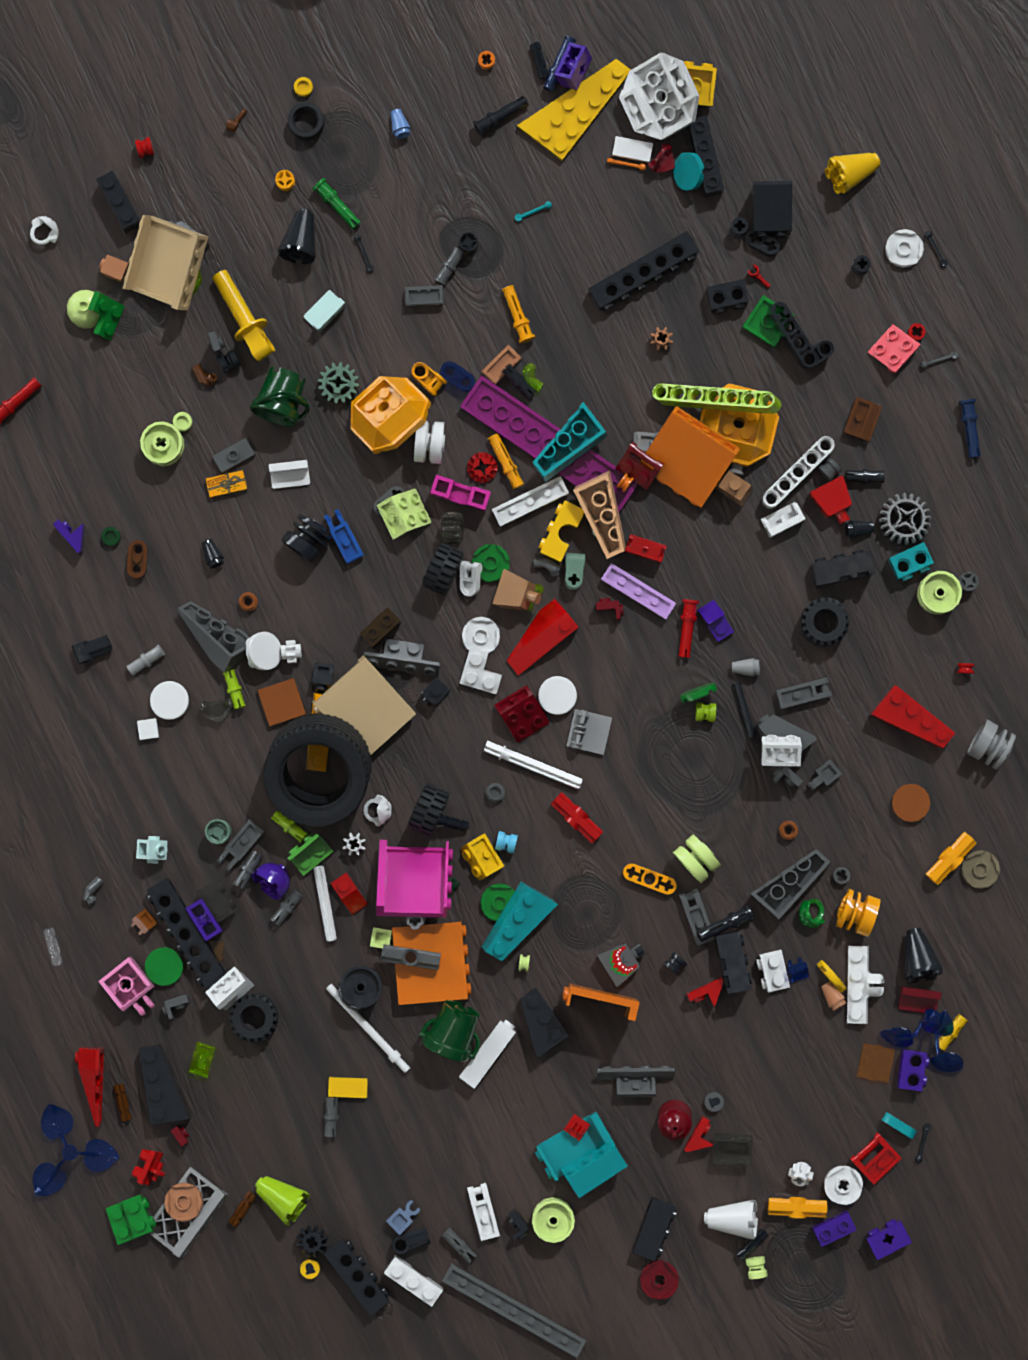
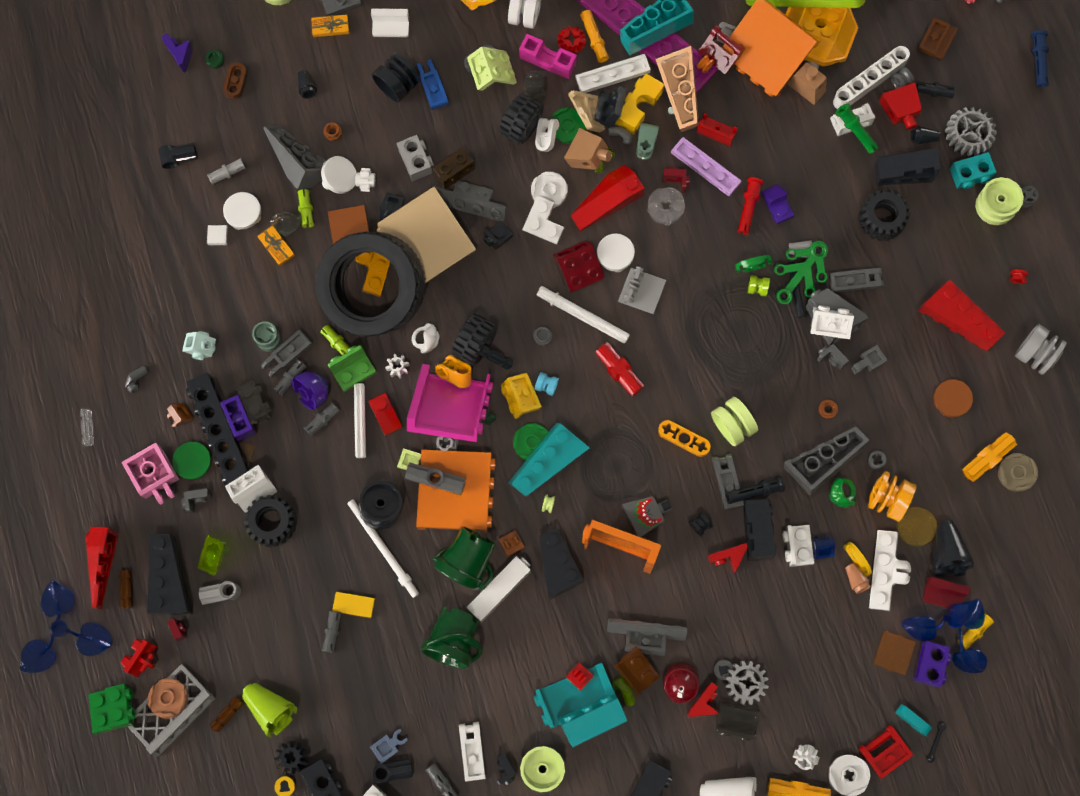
camera: 15 degrees right, 10 degrees down
(210, 732) = (276, 245): none -> light orange tile
(213, 1094) = (218, 593): none -> light grey piece
(335, 622) = (411, 159): none -> light grey brick
(409, 842) = (455, 371): none -> light orange piece
(451, 1109) = (453, 639): none -> dark green piece
(493, 1006) = (511, 543): none -> dark orange tile
(510, 547) = (586, 107): none -> tan wing
(532, 541) = (609, 107): none -> black bracket
(599, 628) = (676, 205): none -> clear plate
(624, 1137) = (627, 693): none -> clear neon green arm
(631, 1114) = (637, 670): none -> reddish brown plate
(728, 1110) = (745, 690): none -> light grey gear
(747, 691) = (803, 270): none -> green plant
(782, 529) = (852, 122): none -> green pin
(887, 936) = (917, 526): none -> clear yellow tile

